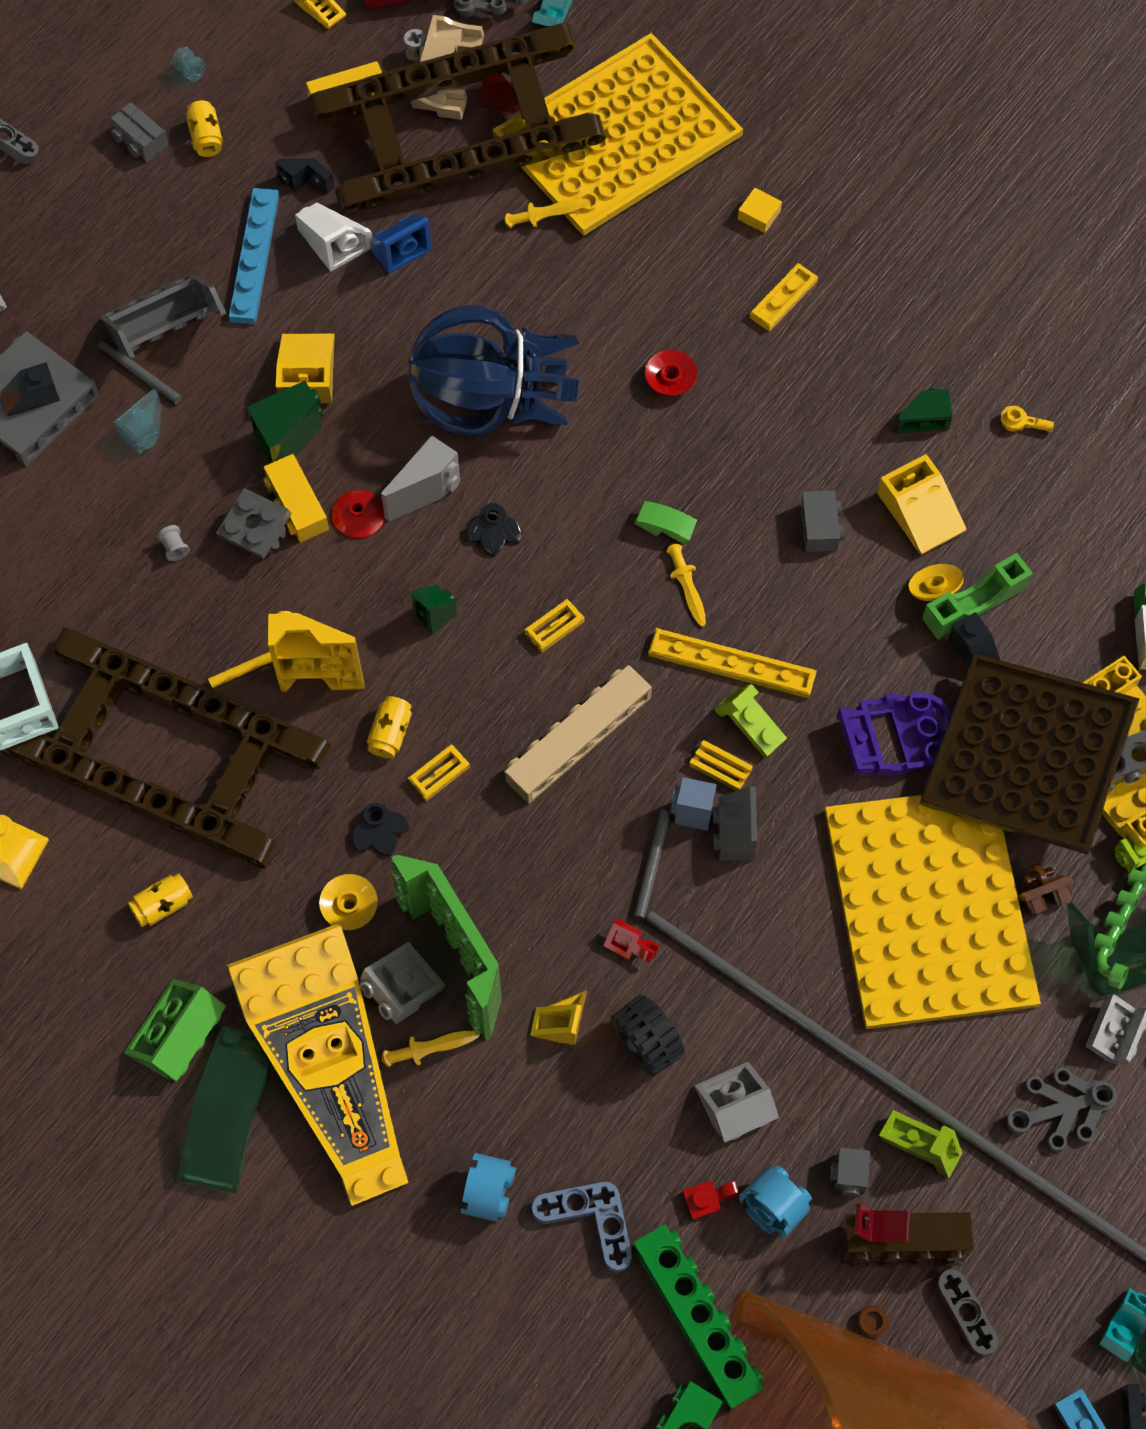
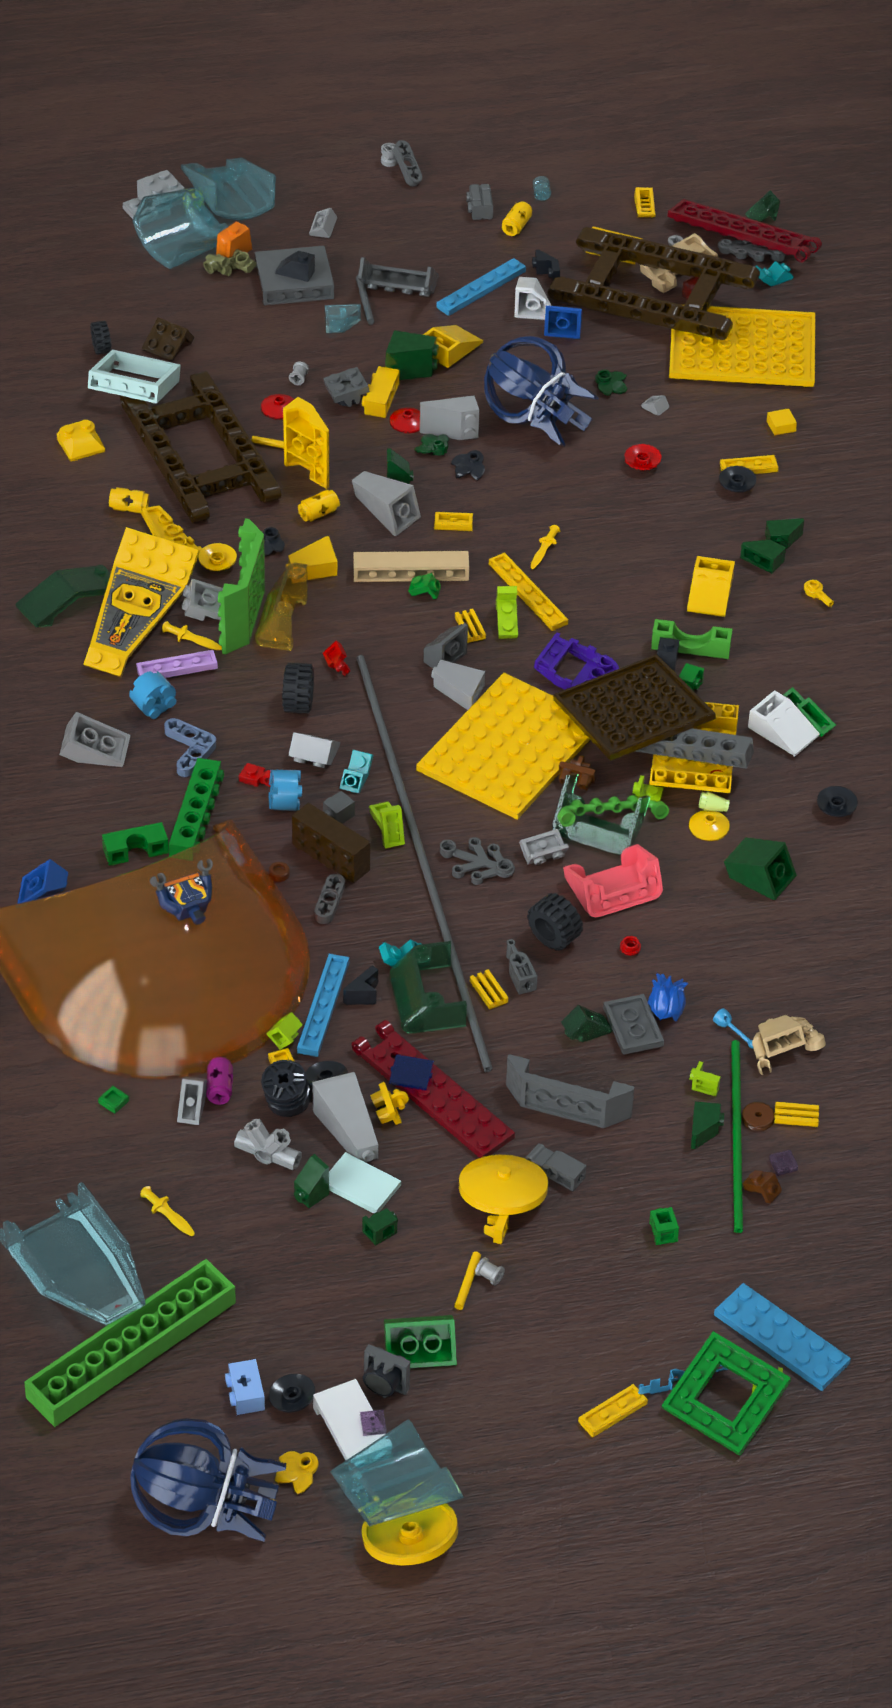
camera: 40 degrees right, 20 degrees down
(175, 1029) = (80, 552): bright green slope -> none
(193, 618) = (273, 405): none -> red dish
(255, 912) = (162, 526): none -> yellow wing
(421, 529) = (434, 444): none -> dark green plate
(443, 782) = (335, 537): yellow tile -> none
(460, 1110) = (180, 664): none -> lavender plate
(462, 657) = (388, 500): none -> light grey slope
(464, 817) = (319, 559): none -> yellow slope
(482, 1318) = (94, 742): none -> light grey slope
(519, 955) = (276, 618): none -> clear yellow windscreen
(532, 289) = (610, 382): none -> dark green plate
(535, 214) = (653, 352): yellow sword -> none
(560, 1020) = (267, 666): yellow slope -> none
(605, 284) = (656, 404): none -> light grey slope
(619, 750) = (425, 584): none -> green bracket
(652, 865) = (386, 640): dark grey bar -> none
(661, 518) = (564, 513): bright green slope -> none
(693, 803) = (432, 620): sand blue brick -> none
(797, 864) = (459, 682): none -> light grey slope
(801, 319) = (737, 478): none -> black dish
(813, 1095) = (357, 772): none -> teal slope
(820, 521) = (647, 562): dark grey brick -> none
(882, 1225) = (317, 812): dark red bracket -> none
(915, 368) = (784, 531): none -> dark green slope
(935, 581) = (681, 623): yellow dish -> none
(1024, 651) = (692, 676): none -> green brick

